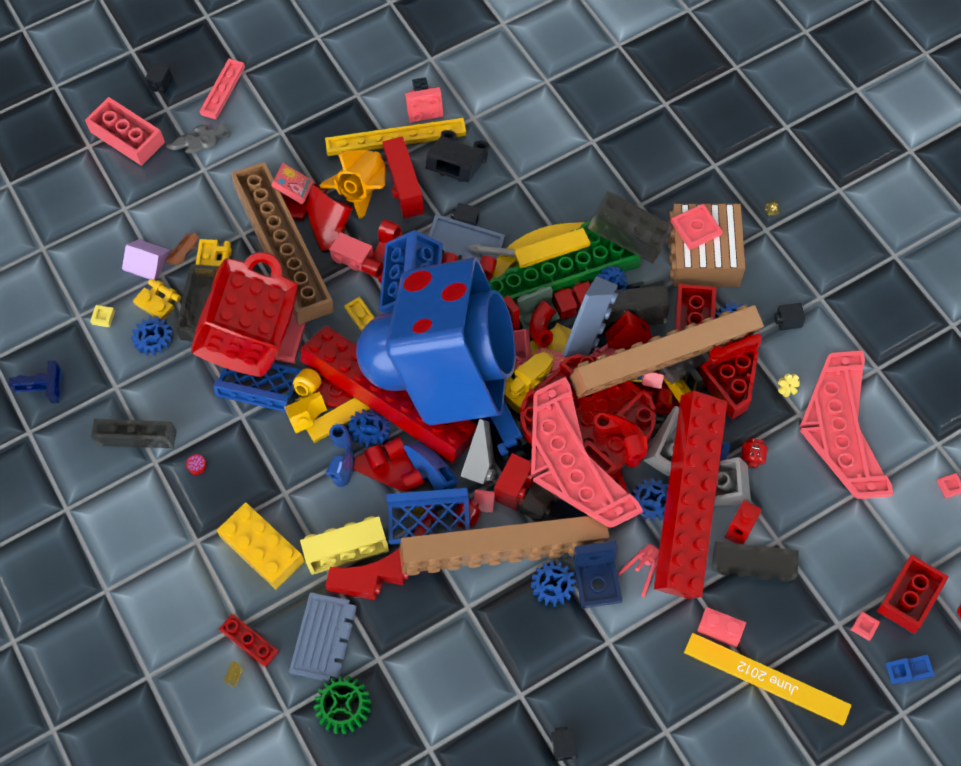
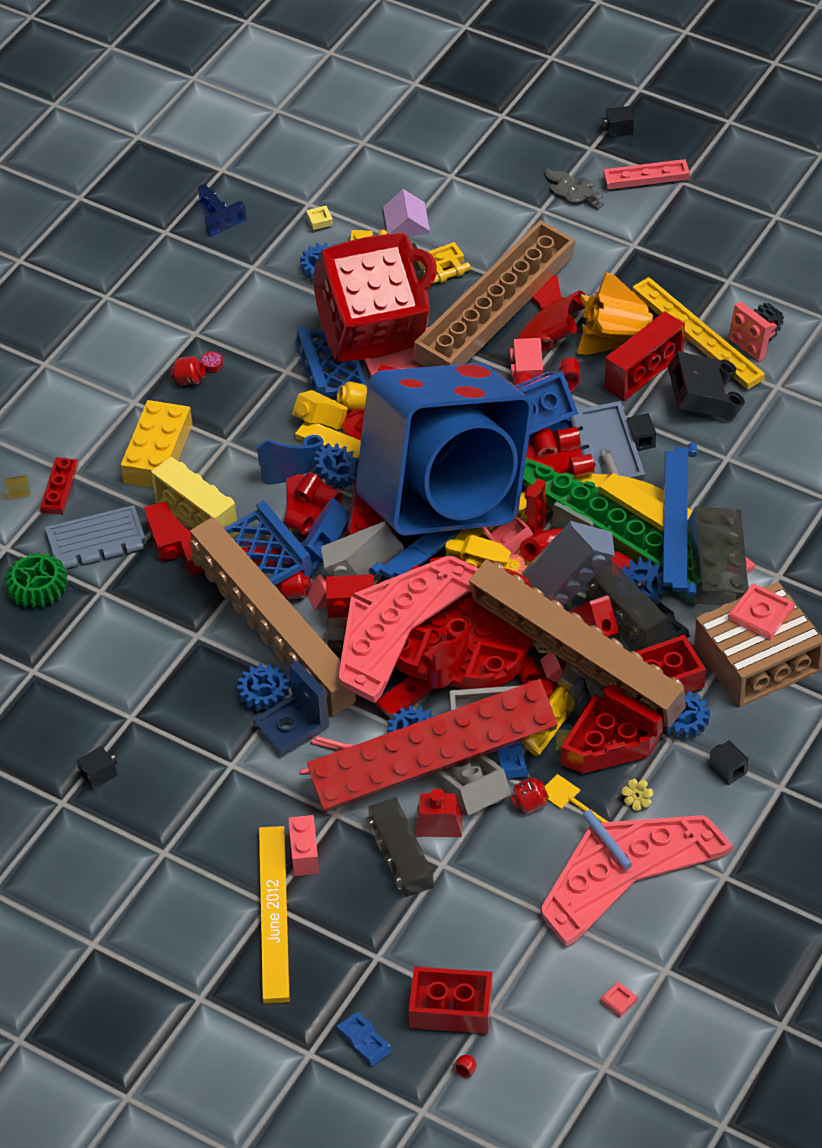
camera: 60 degrees right, 15 degrees down
(125, 131) = (533, 127): coral brick -> none
(133, 433) = (209, 298): clear smoke brick -> none
(177, 256) = (425, 237): dark orange plate -> none
(197, 486) = (188, 371): none -> red head
(292, 183) = (568, 273): coral tile -> none
(580, 234) = (676, 519): none -> blue piece
(757, 431) = (563, 792): none -> yellow piece
(822, 423) = (607, 840): none -> medium blue bar
(865, 626) = (391, 980): coral tile -> none

